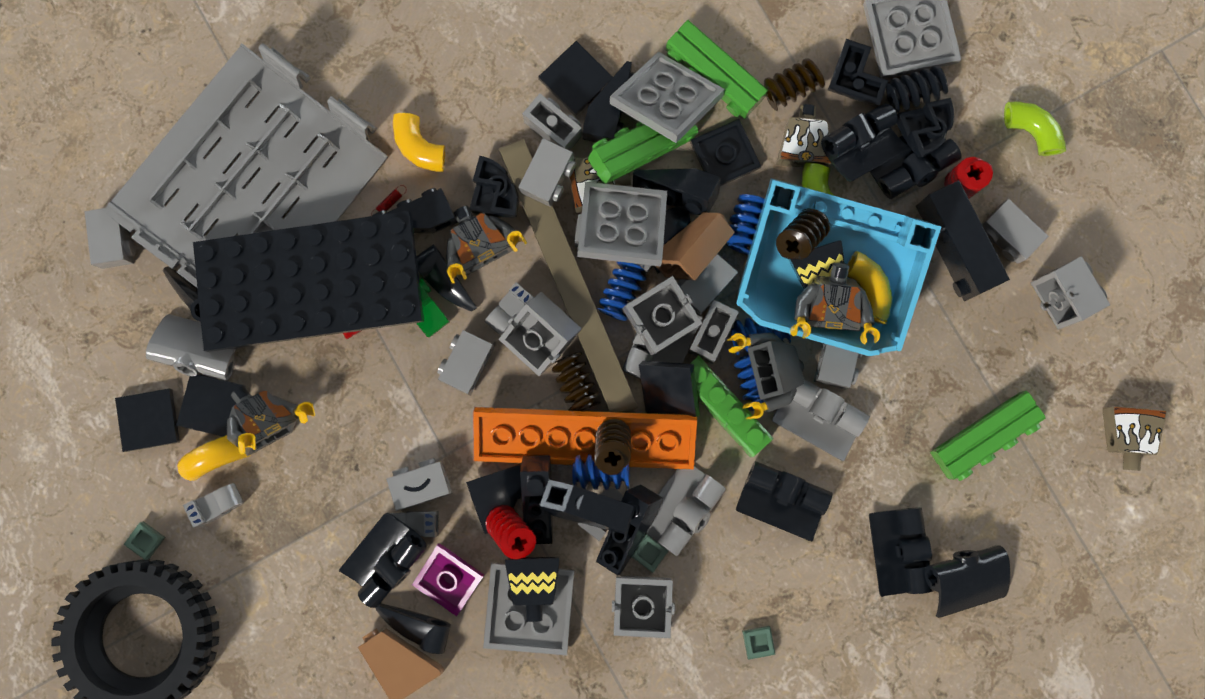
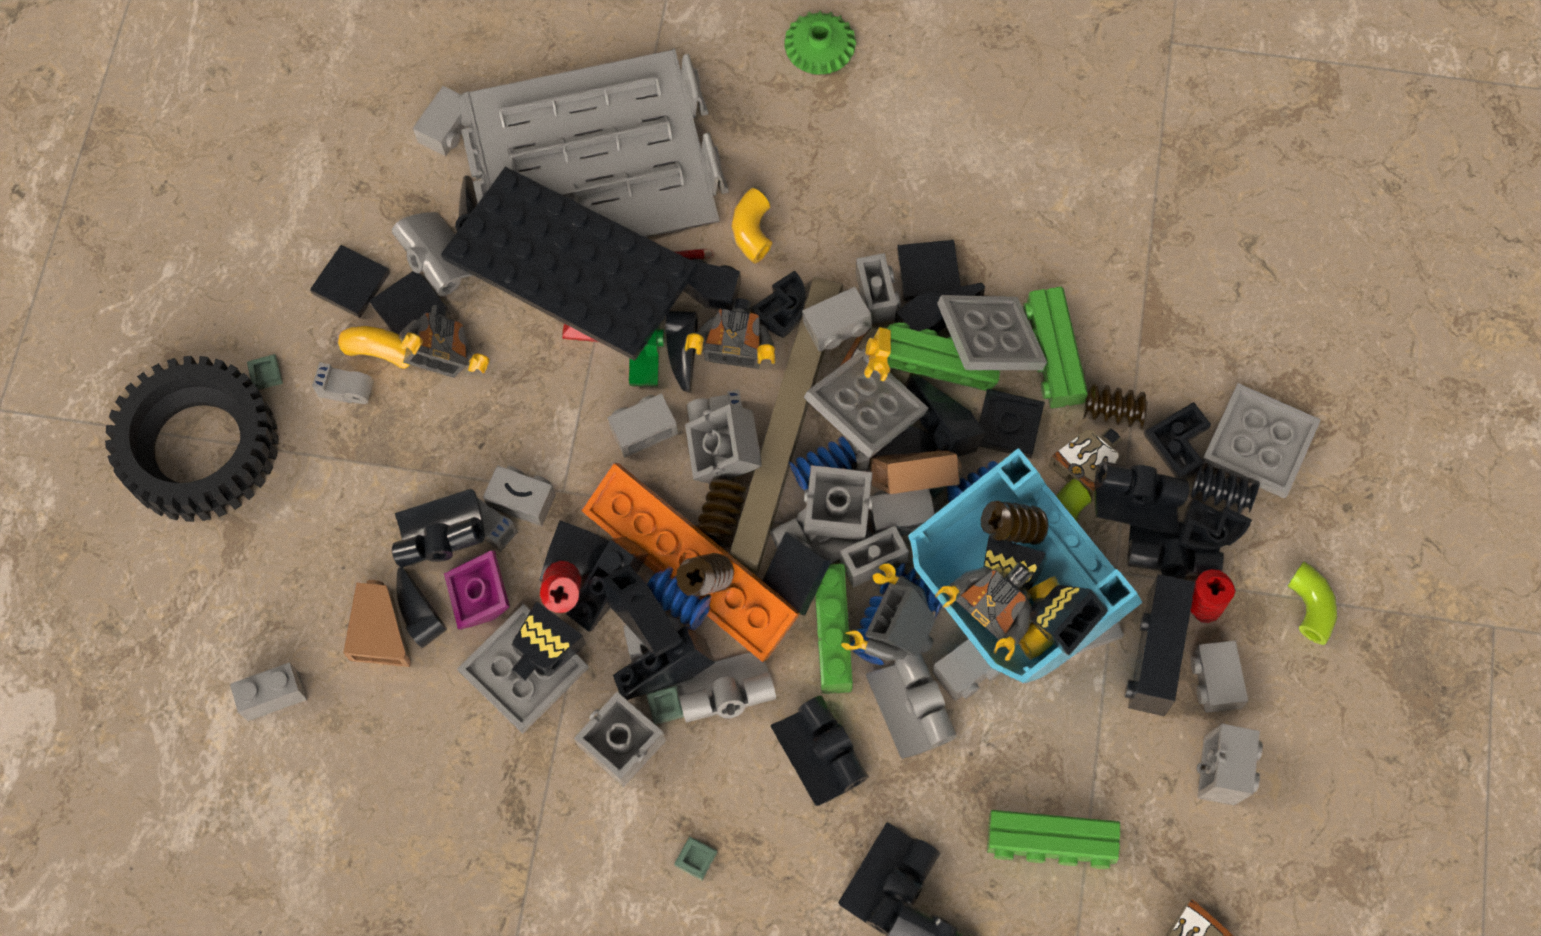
camera: 40 degrees right, 15 degrees down
(601, 176) = (878, 351): none -> yellow plate
(900, 280) = (1067, 615): none -> black torso

